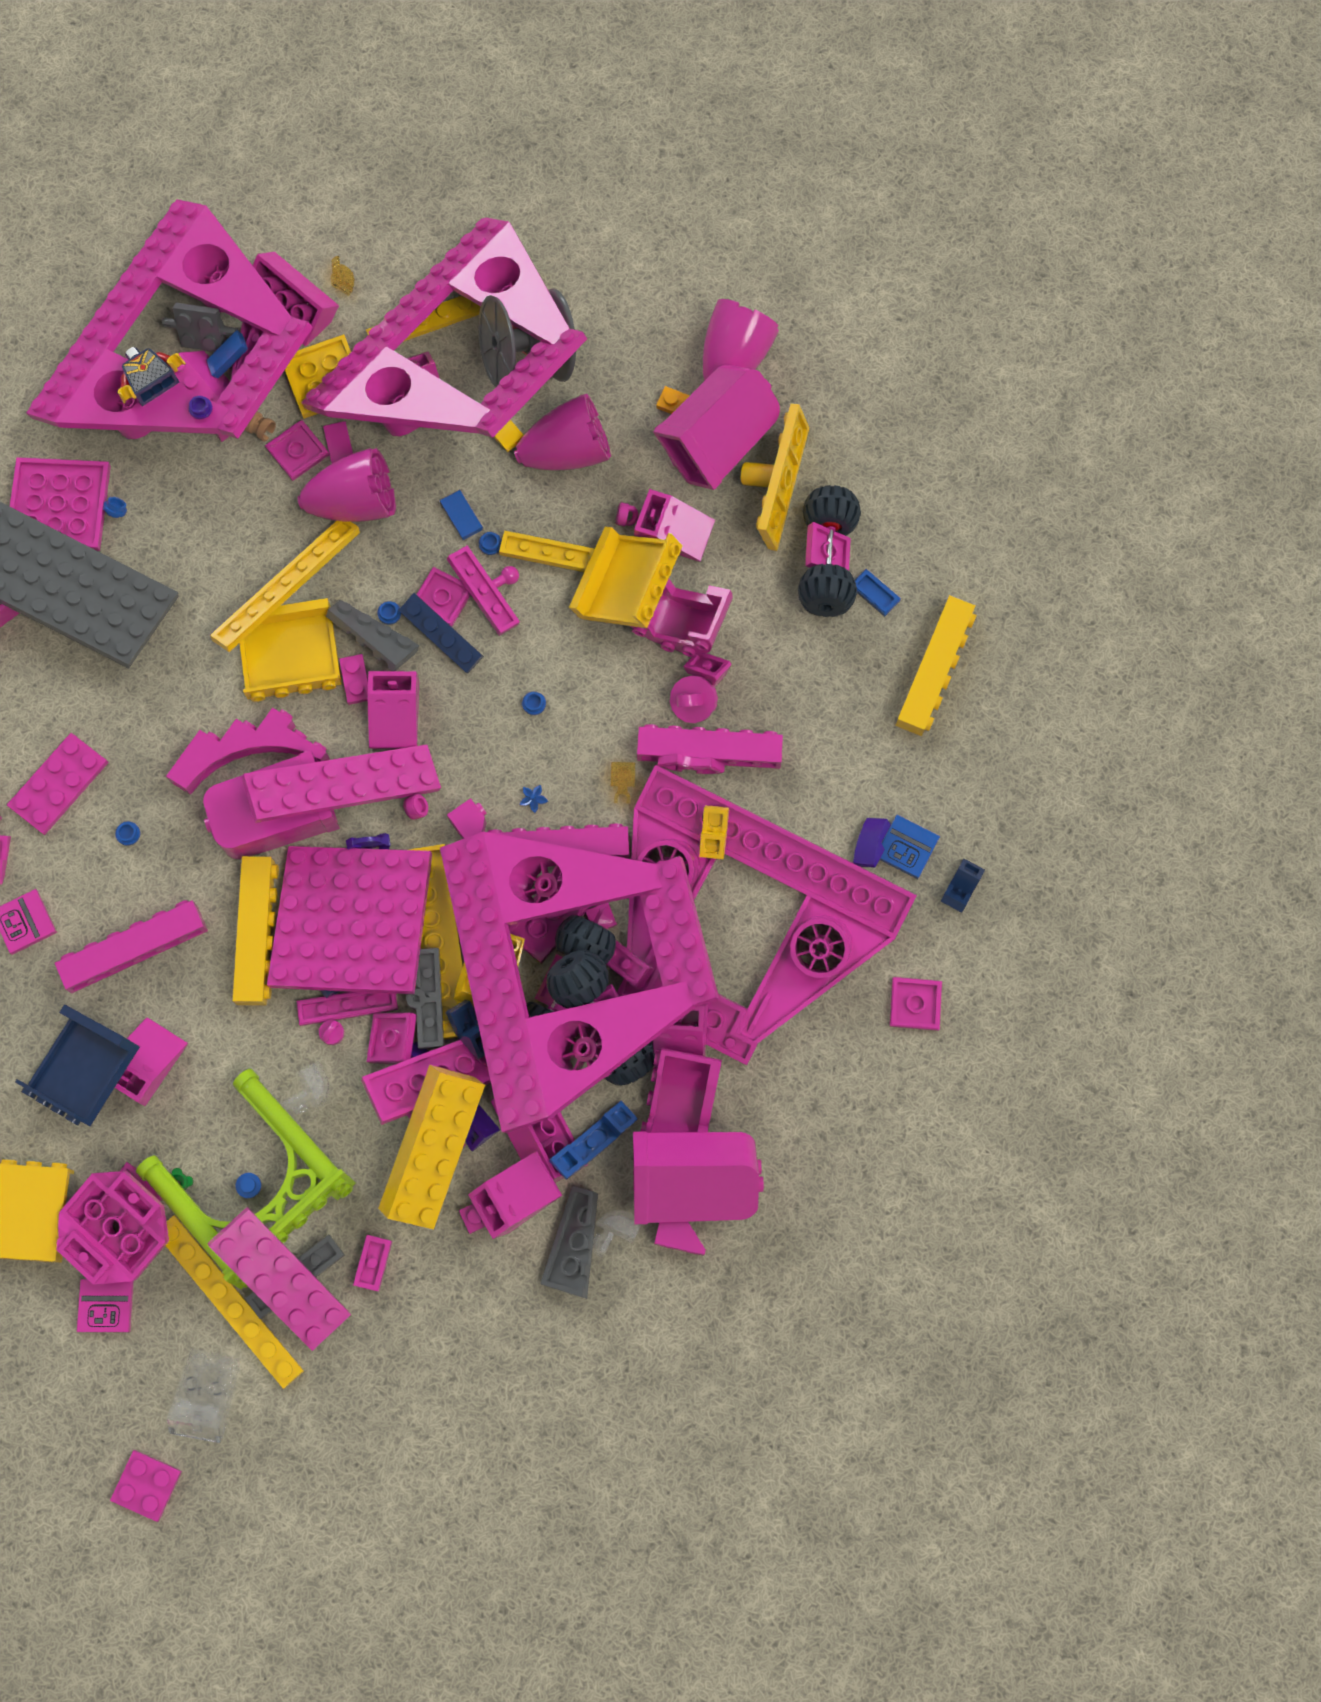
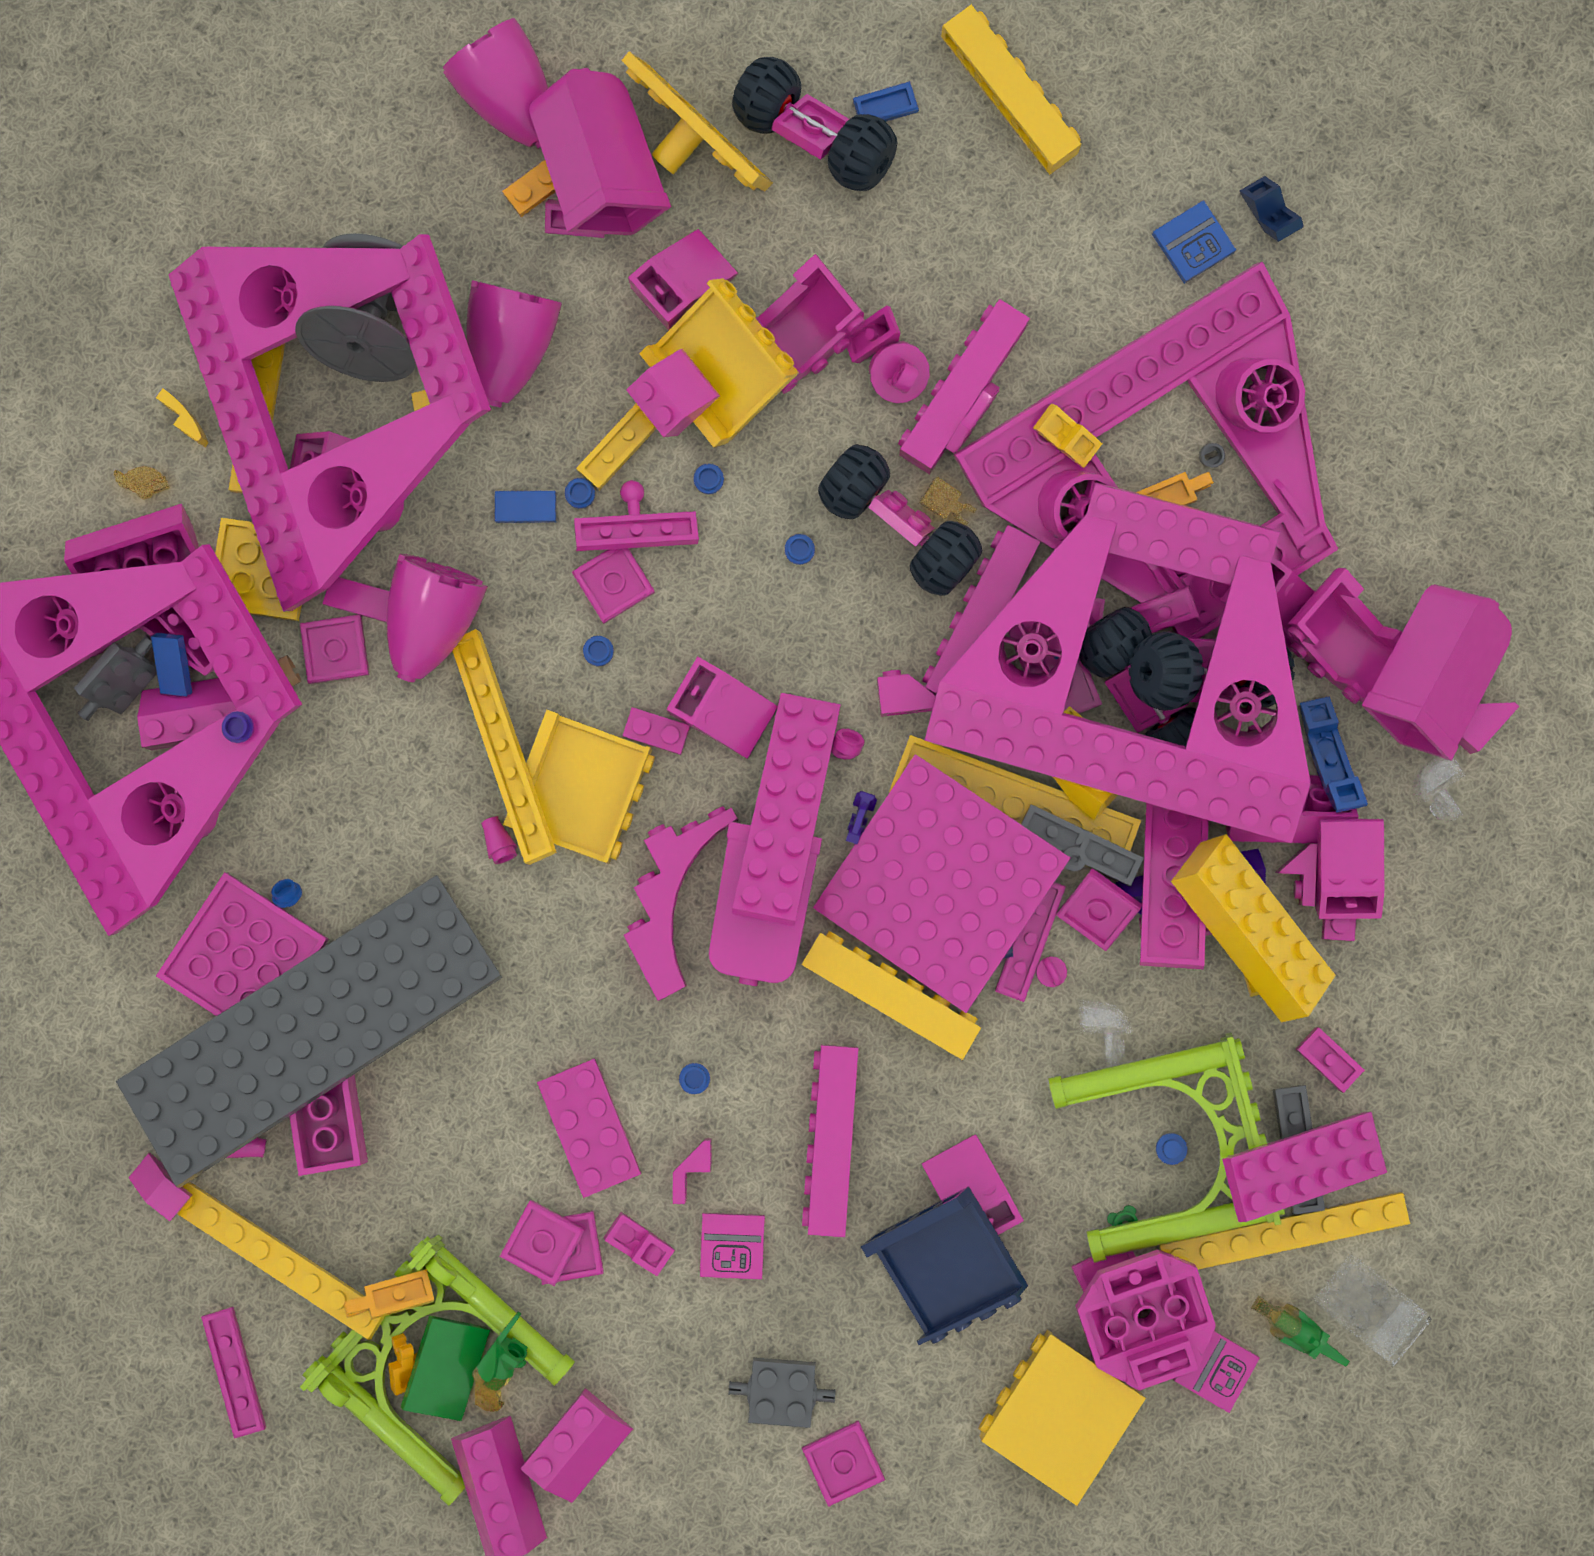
camera: 55 degrees left, 10 degrees up
(71, 865) = (697, 1161): none -> dark pink slope
(146, 1485) = (1431, 1420): dark pink plate -> none
(148, 374) = (158, 765): torso -> none
(161, 1347) = (1297, 1330): none -> animal
(221, 616) = (498, 841): none -> dark pink cone
(369, 632) = (632, 674): dark grey wing -> none
(396, 280) = (186, 421): none -> yellow slope
(441, 633) = (658, 606): dark blue plate -> none
(466, 1027) = (1140, 819): dark blue slope -> none
(500, 1161) = (1305, 864): none -> dark pink slope
(533, 798) = (909, 610): blue plant -> none
(548, 619) = (708, 478): none -> blue plate
(572, 1249) = (1434, 842): dark grey wing -> none
(586, 558) = (673, 393): none -> dark pink slope
(595, 711) = (855, 485): none -> black plate
(622, 514) = (632, 325): dark pink tile -> none
(718, 928) = (1179, 488): none -> light orange plate
(759, 945) = (1214, 461): none -> dark grey hinge
(869, 843) = (1170, 277): dark purple slope -> none
(915, 1003) = (1369, 334): dark pink tile -> none

